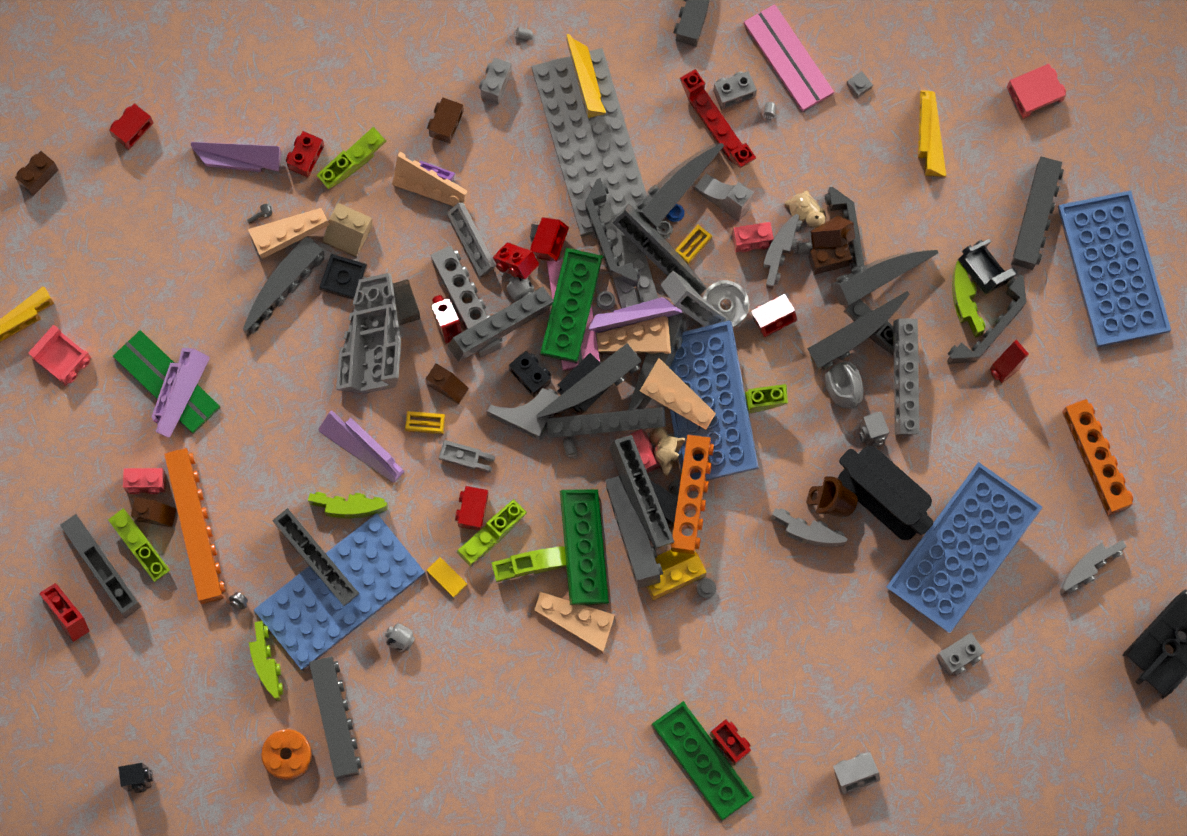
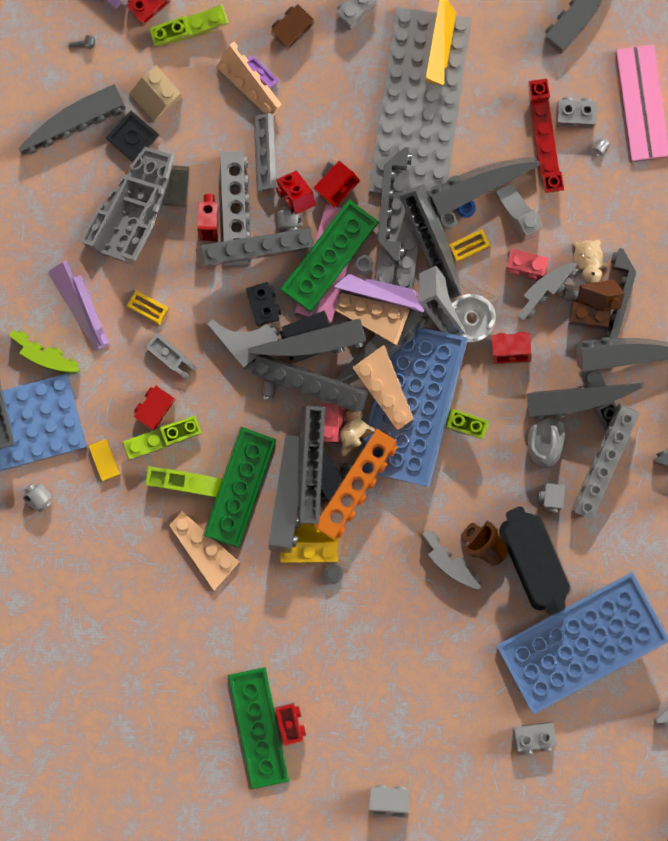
camera: 25 degrees right, 10 degrees up
(284, 232) = (95, 71): light nougat wing -> none
(446, 383) = (182, 280): reddish brown slope -> none

